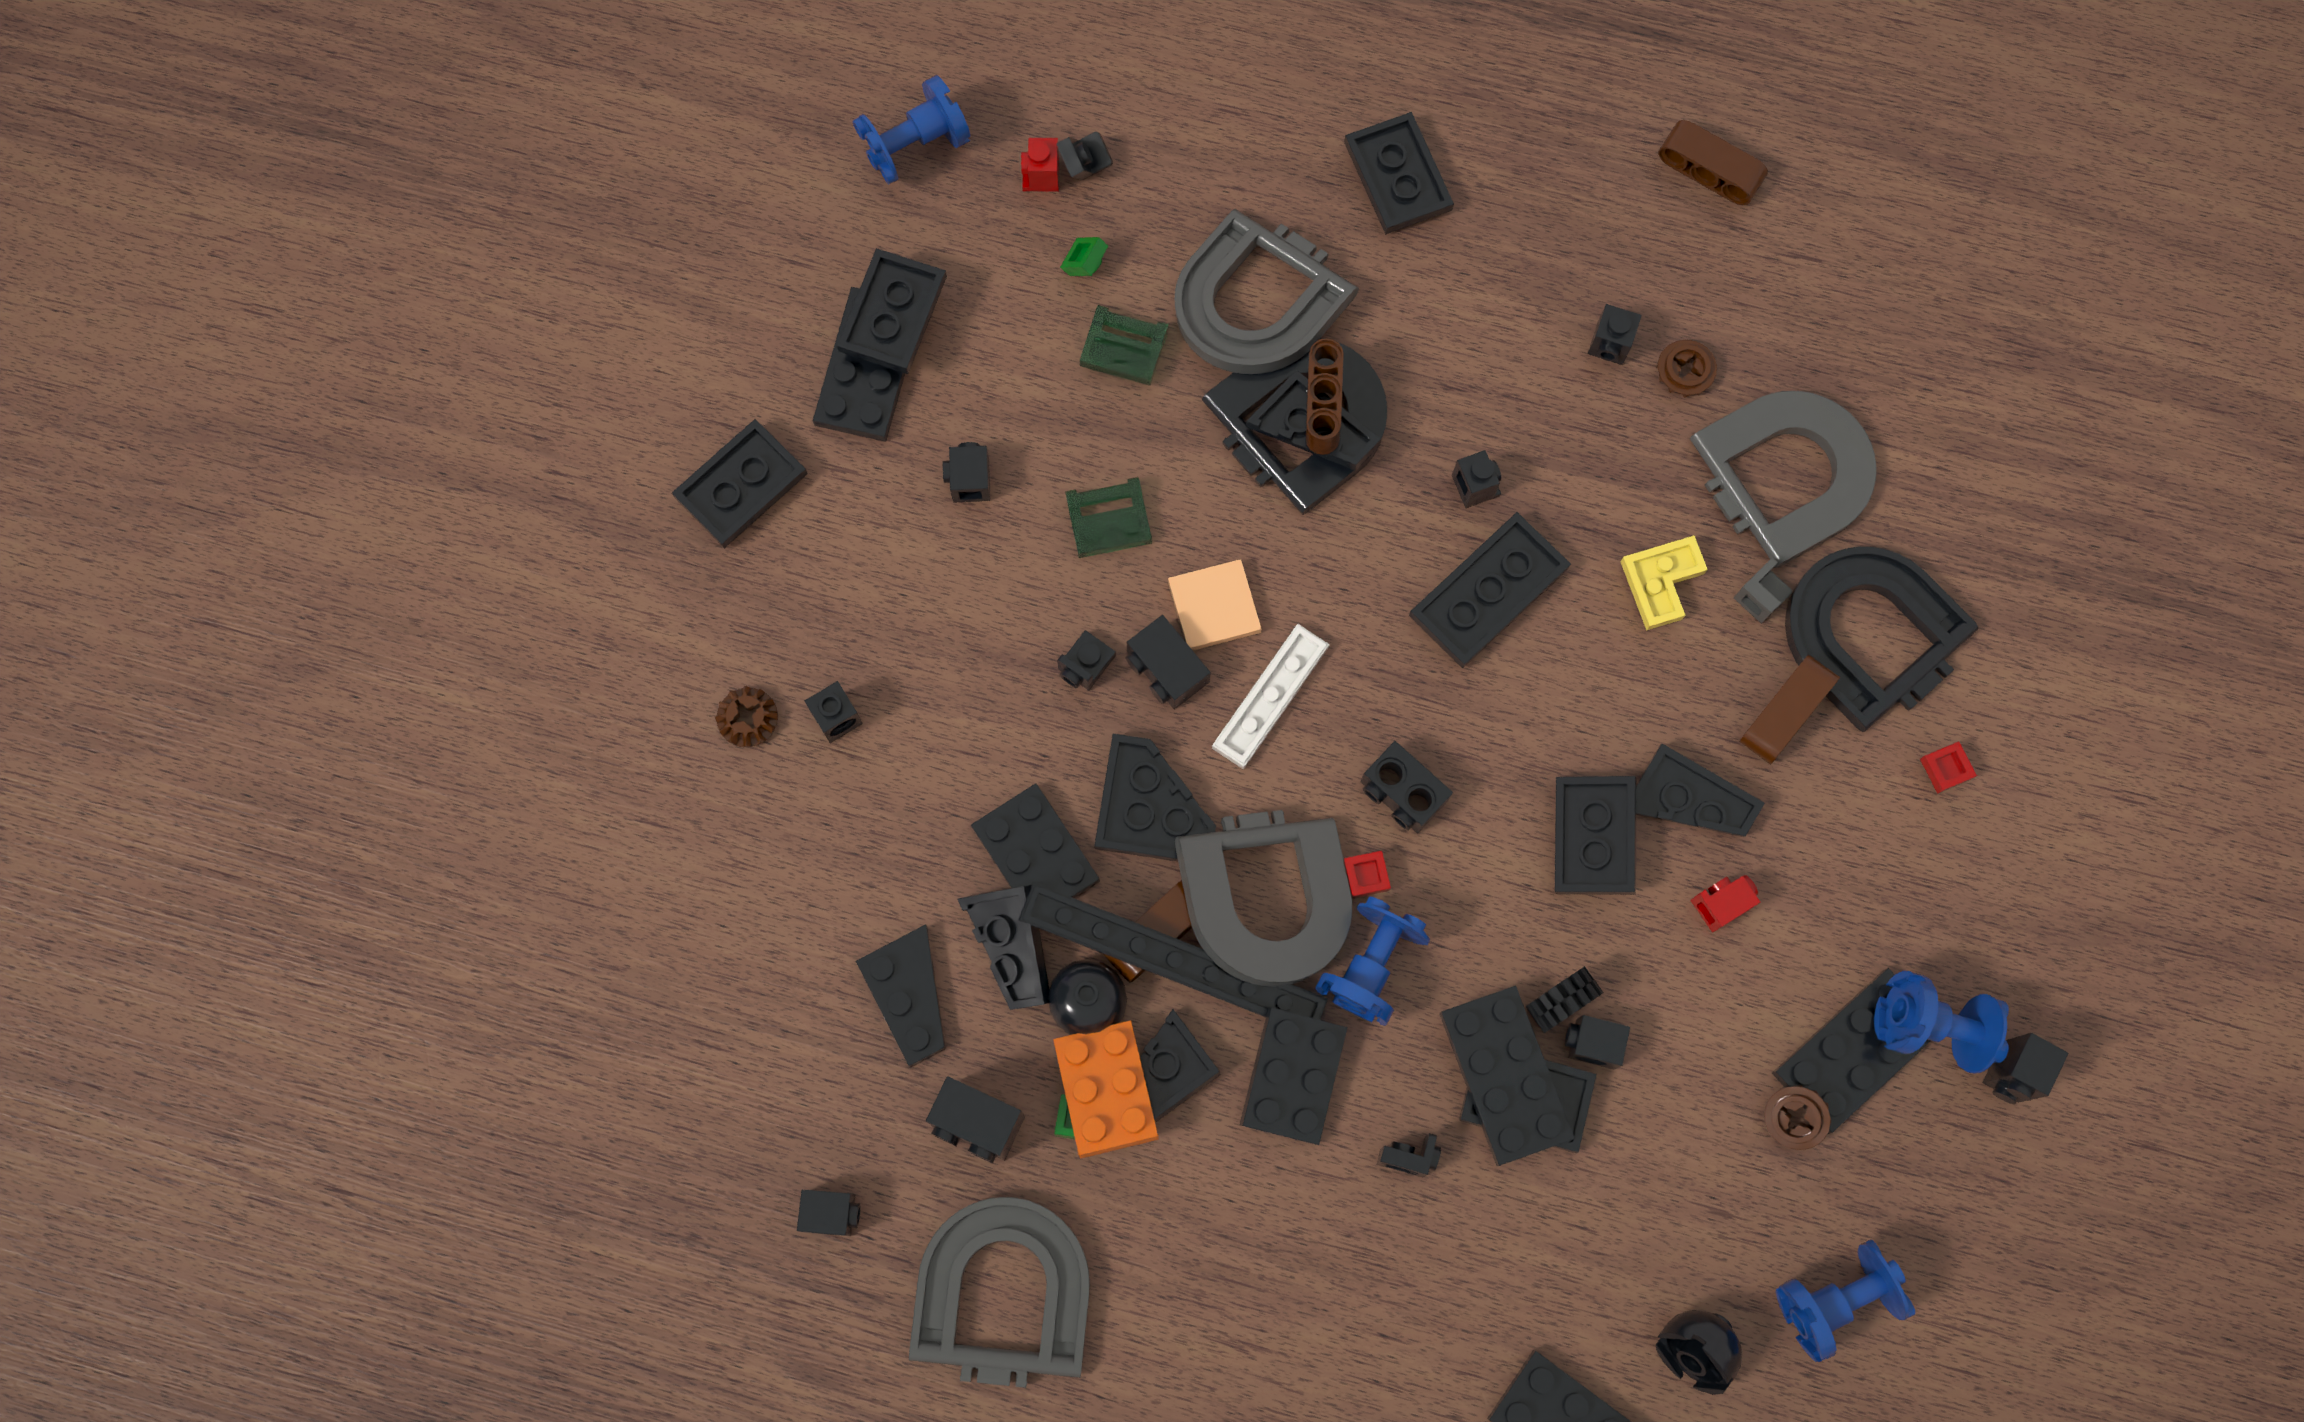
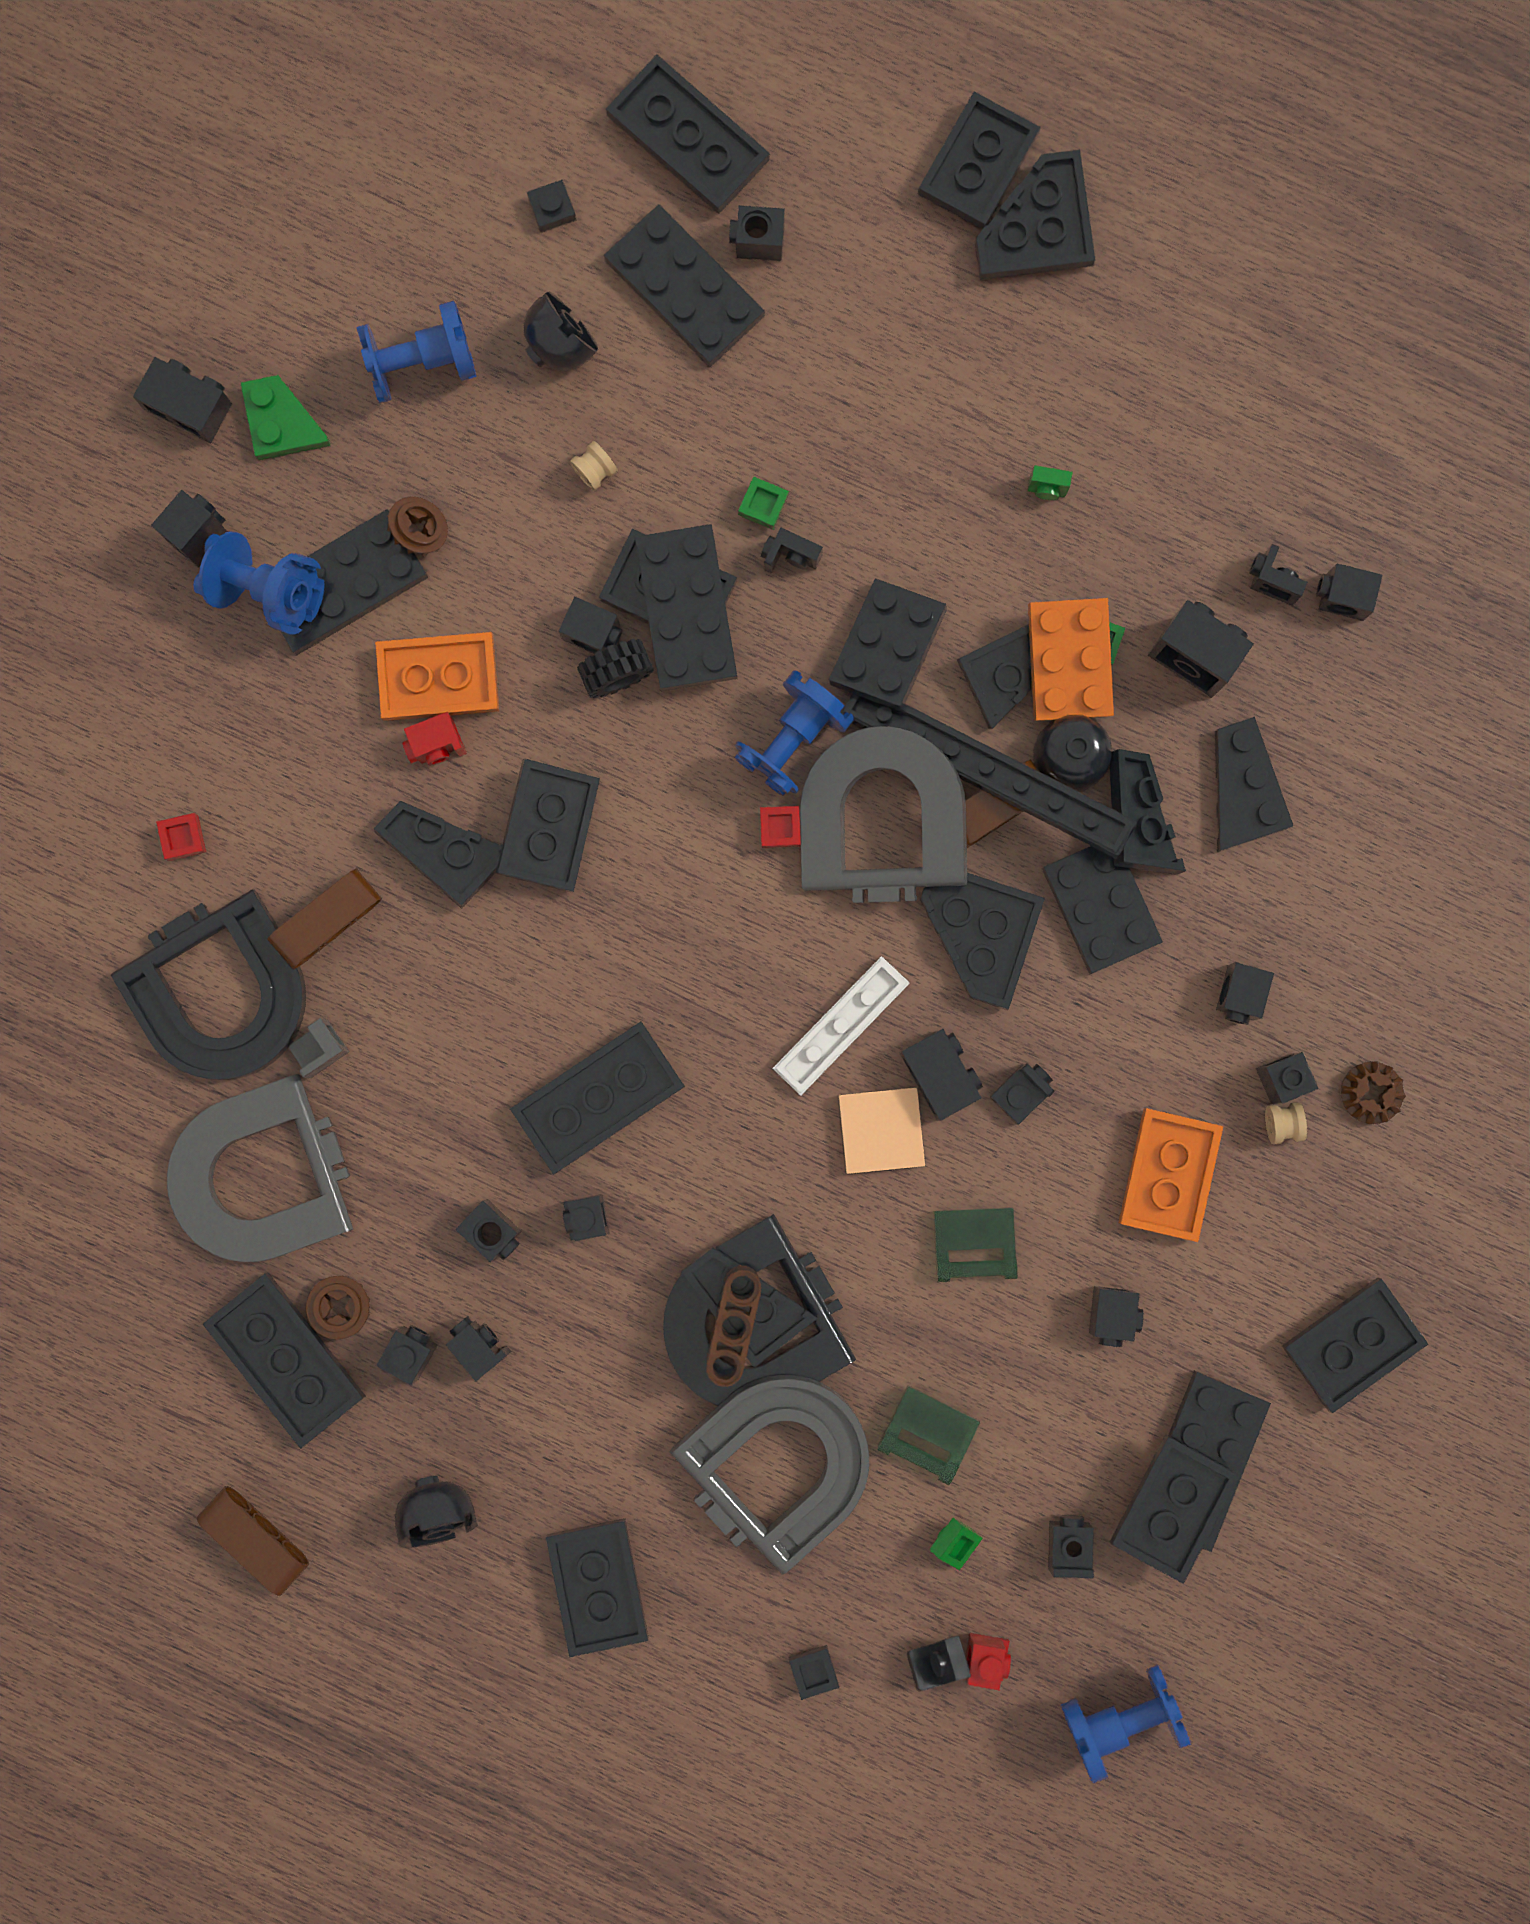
camera: 170 degrees left, 10 degrees up
(828, 670) = (1286, 1123): none -> tan wheel
(884, 787) = (1244, 993): none -> black brick
(899, 1210) = (1276, 583): none -> black bracket
(933, 607) = (1170, 1174): none -> orange plate
(941, 1285) = (1133, 484): dark grey piece -> none
(976, 256) = (1060, 1534): none -> black brick
(1155, 1276) = (1049, 482): none -> green plate
(1192, 134) = (814, 1672): none -> black plate
(1413, 780) = (718, 910): black brick -> none
(1448, 1205) = (763, 503): none -> green plate
(1552, 350) = (476, 1347): none -> black brick
(1559, 208) = (433, 1513): none -> black cylinder
(1562, 468) = (472, 1228): none -> black brick
(1632, 1214) = (593, 466): none -> tan wheel
(1653, 576) = (429, 1084): light yellow plate -> none
(1724, 315) = (284, 1360): none -> black plate
(1739, 967) = (437, 676): none -> orange plate
(1968, 1211) = (278, 420): none -> green wing
(2071, 1212) = (183, 399): none -> black brick

